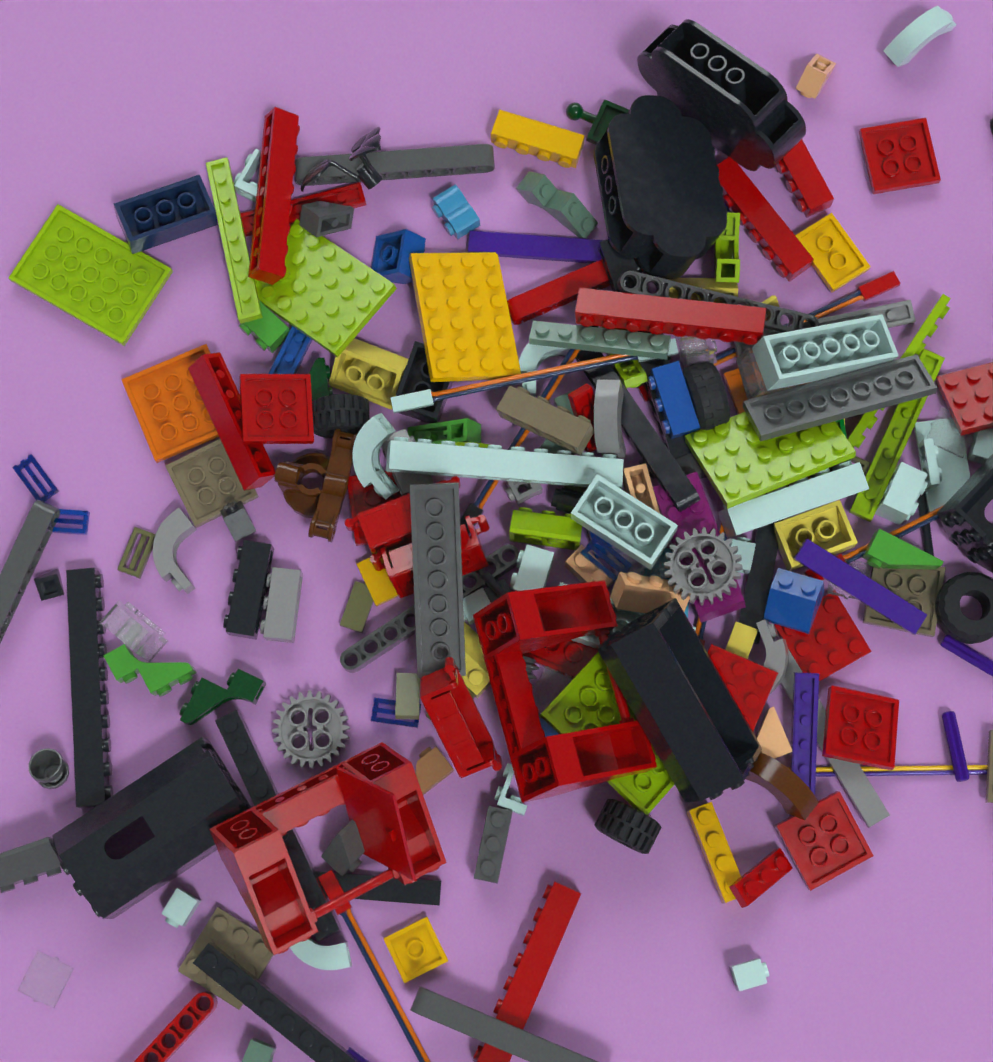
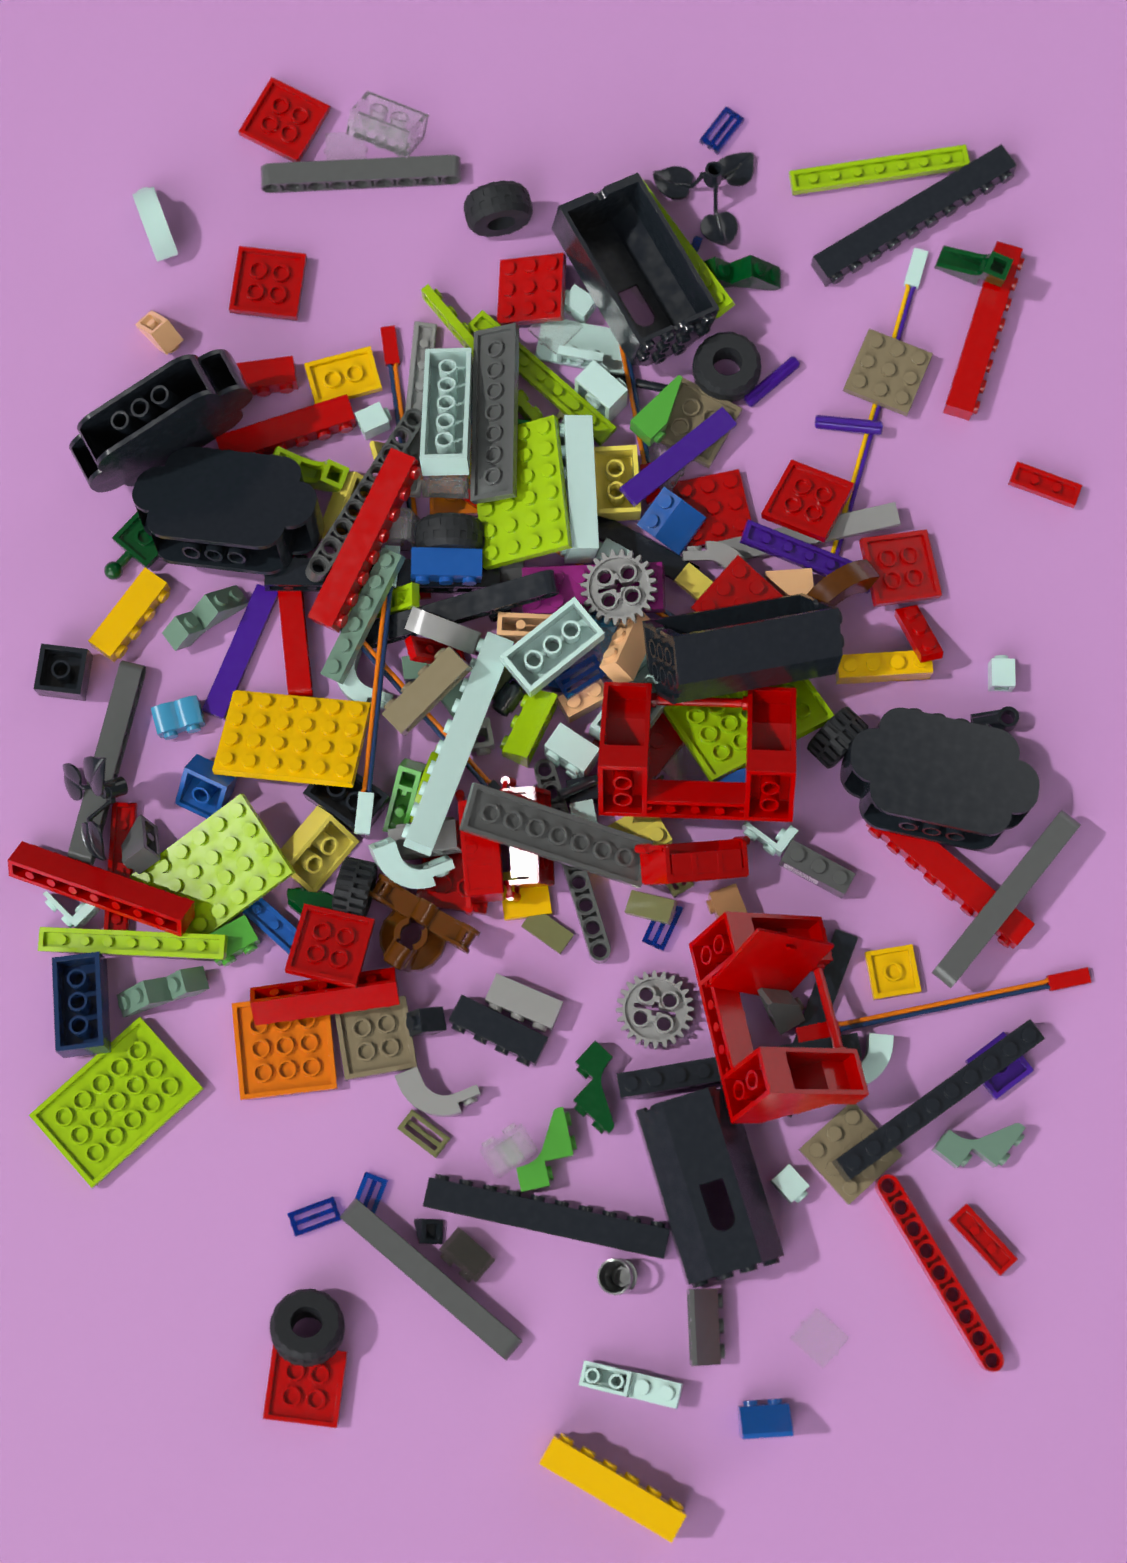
camera: 75 degrees left, 0 degrees up
(35, 625) = (466, 1255): none -> clear smoke brick
(200, 281) = (162, 990): none -> sand green arch
(464, 98) = (63, 672): none -> black brick
(617, 940) = (939, 778): none -> black brick
(697, 977) = (994, 718): none -> black piece
(798, 293) = (373, 420): none -> light aqua brick
(963, 964) = (1045, 484): none -> red plate

